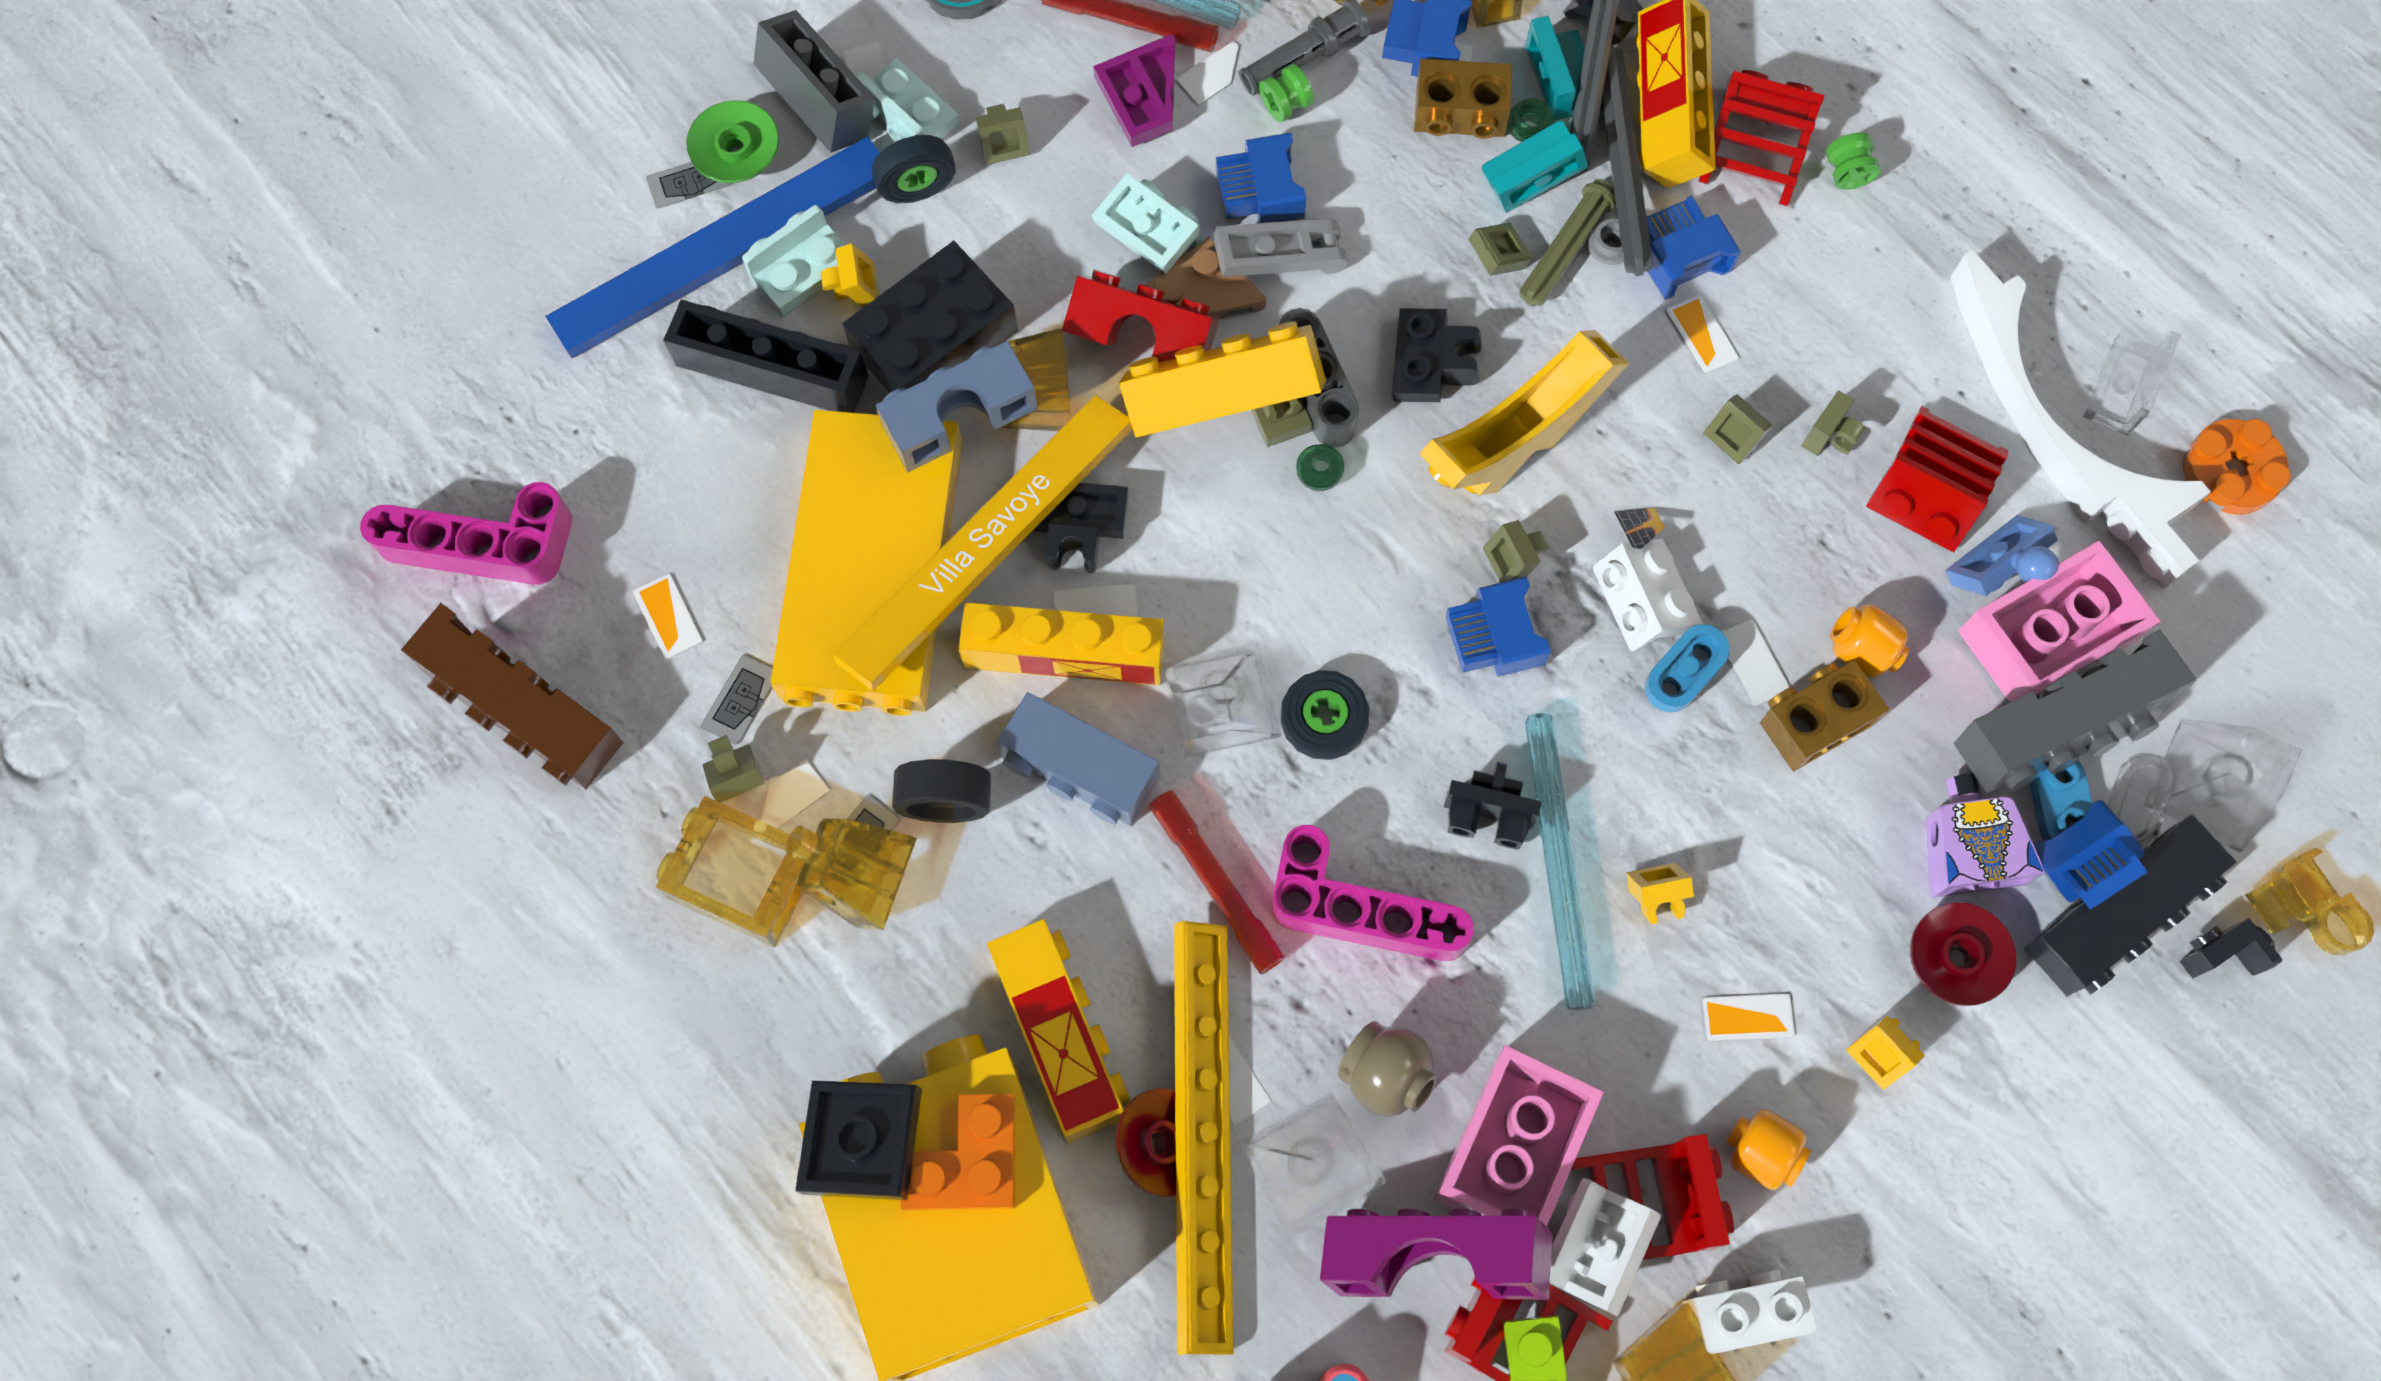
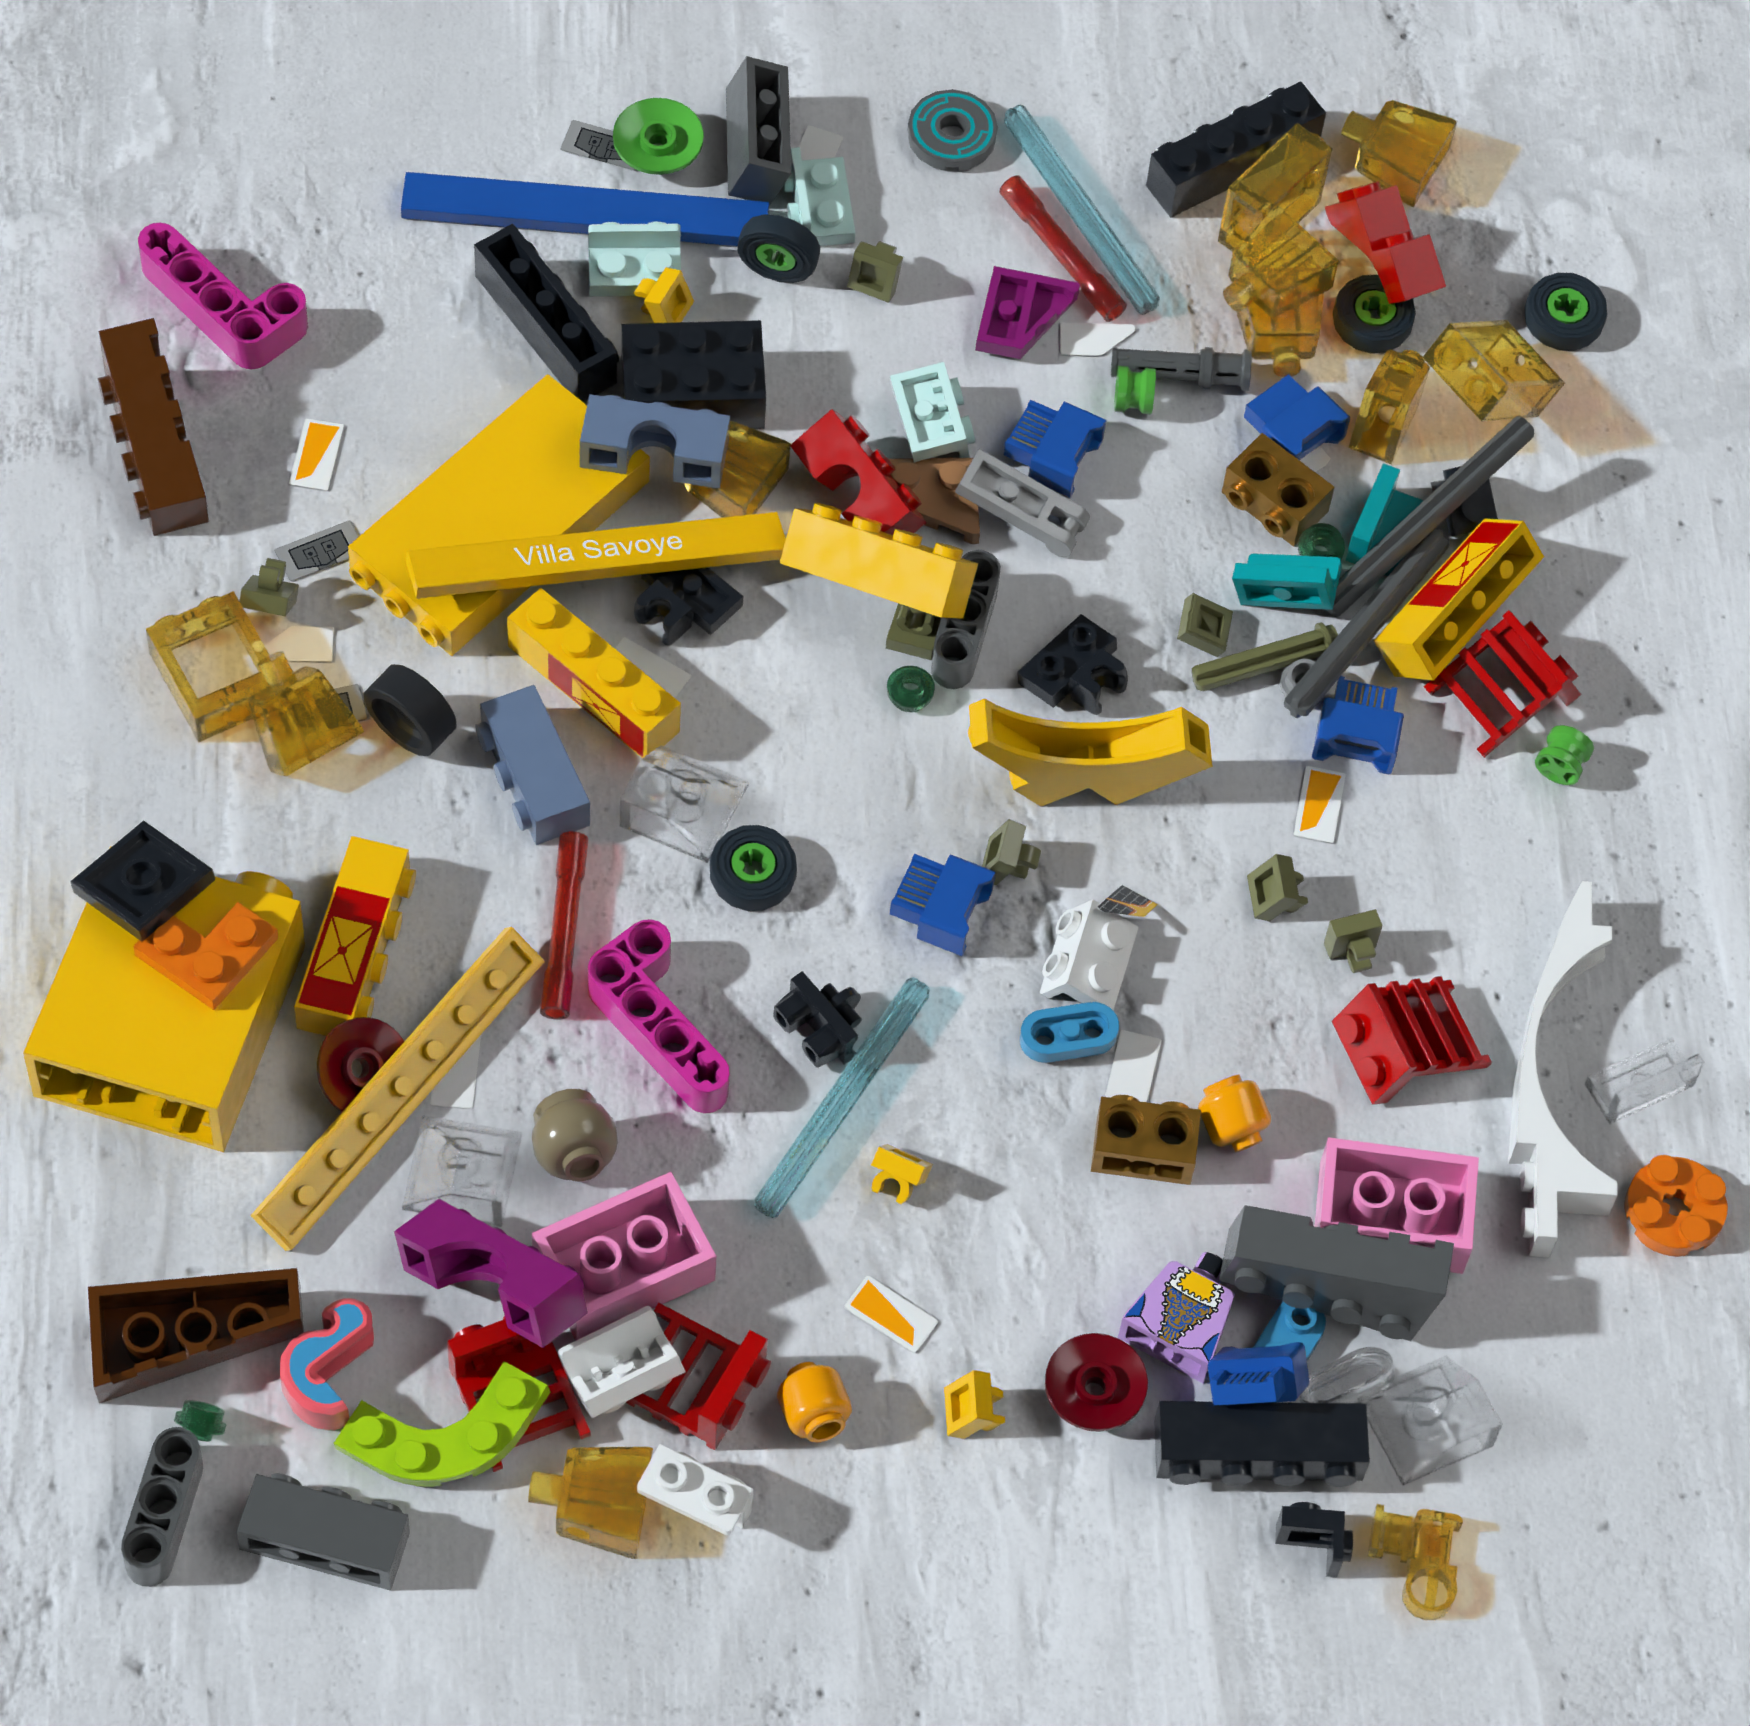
camera: 30 degrees right, 10 degrees down
(2014, 548) = (1409, 1131): medium blue plate -> none

